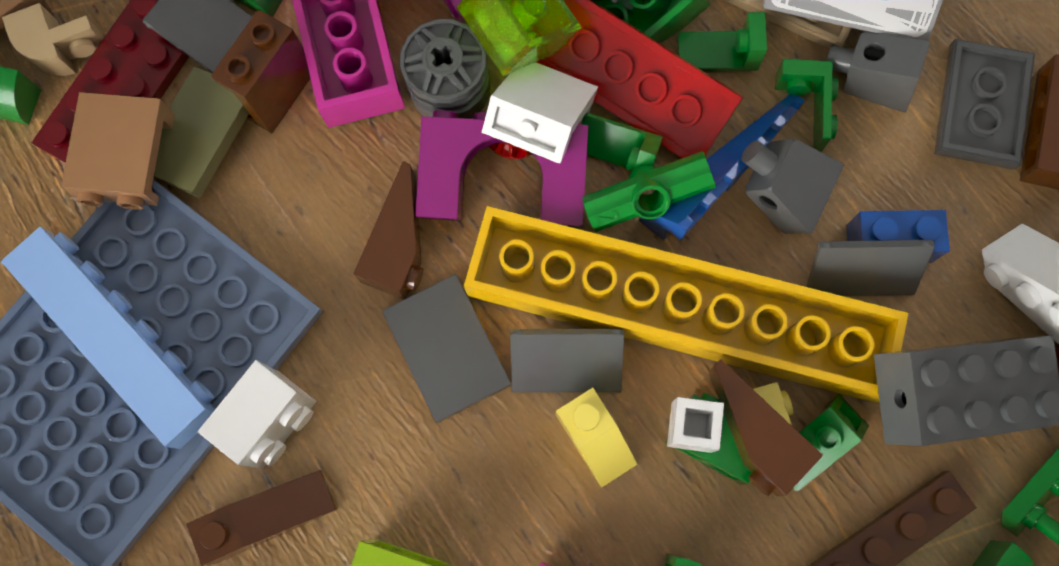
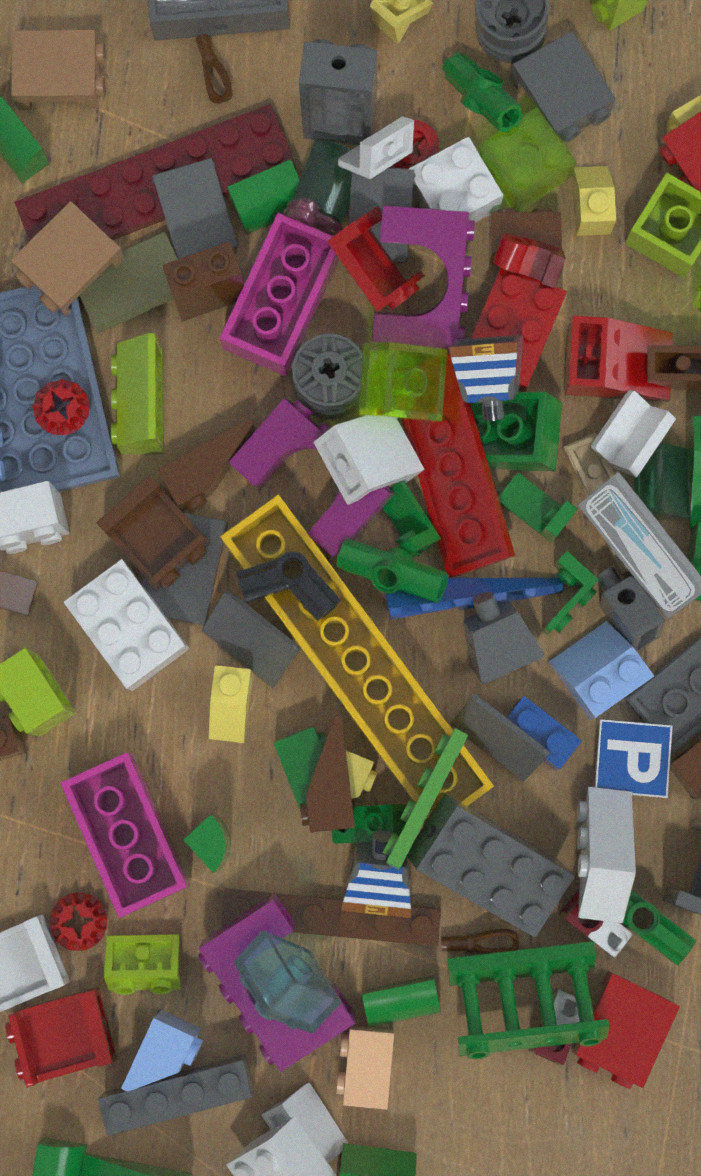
camera: 35 degrees right, 5 degrees up
(47, 43) = (73, 132): tan brick -> none
(220, 306) = (76, 411): none -> red gear
(281, 222) = (138, 396): none -> lime slope
(397, 336) = (154, 534): none -> reddish brown panel
(438, 441) = (126, 625): none -> white brick
(545, 284) = (308, 588): none -> black piece
(695, 425) = (291, 744): white brick -> none
(870, 388) = (431, 783): none -> bright green plate
(874, 489) = (374, 885): none -> torso
(900, 141) = (600, 670): none -> light blue slope
(995, 193) = (634, 757): none -> blue piece
(999, 481) = (468, 942): none -> reddish brown piece

